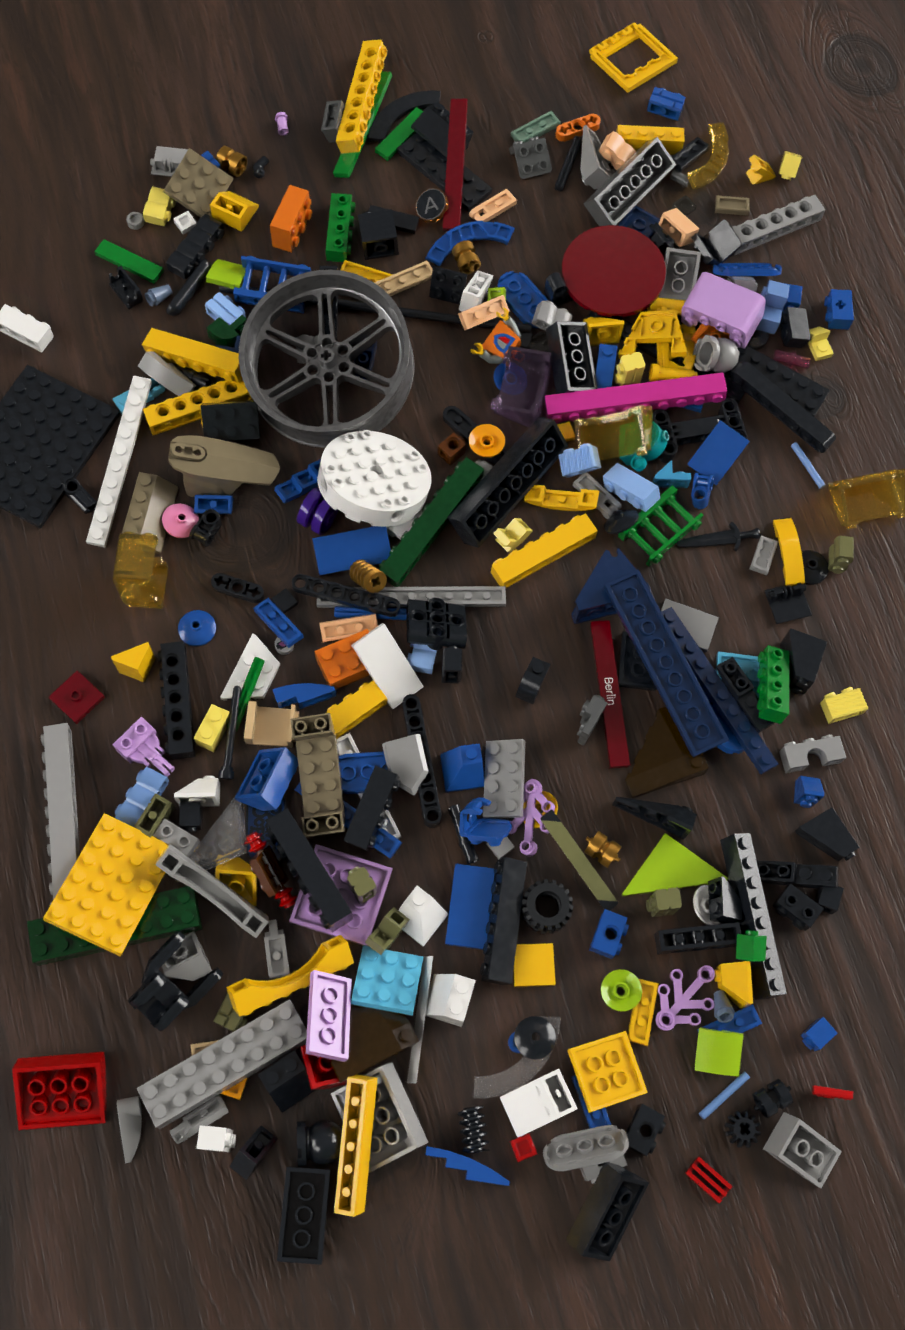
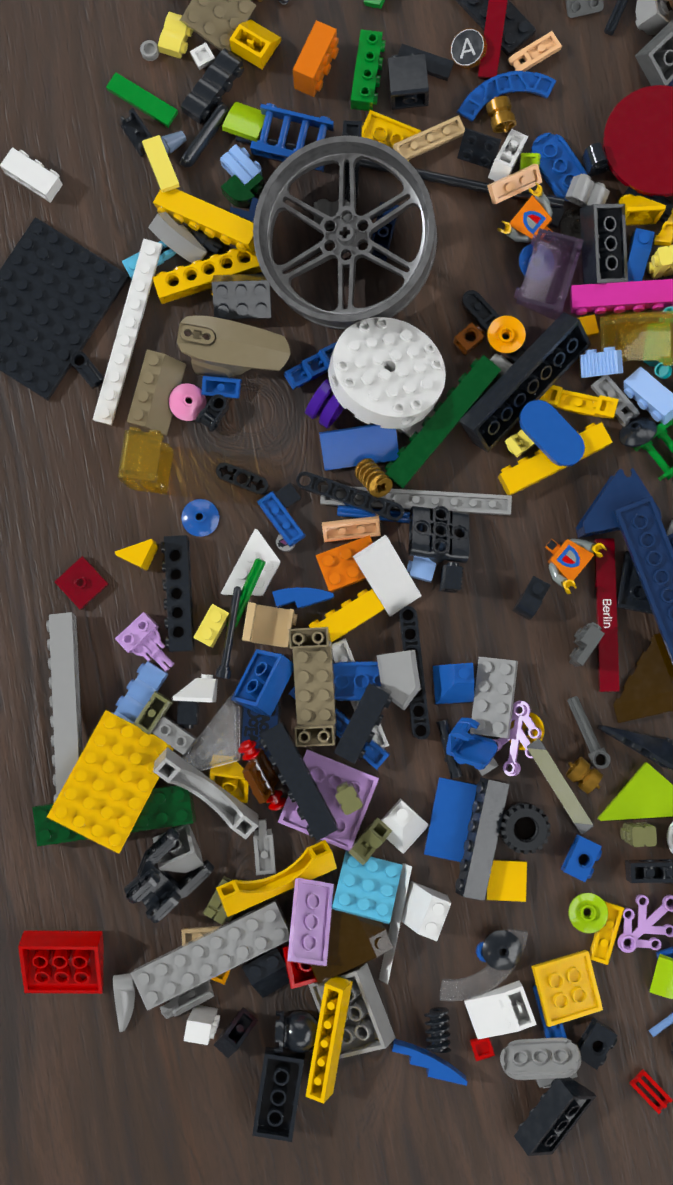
camera: 15 degrees right, 15 degrees up
(148, 310) = (160, 163): none -> light yellow tile
(538, 524) = (551, 433): none -> blue tile
(568, 641) = (570, 559): none -> torso
(603, 809) = (588, 733): none -> dark grey axle

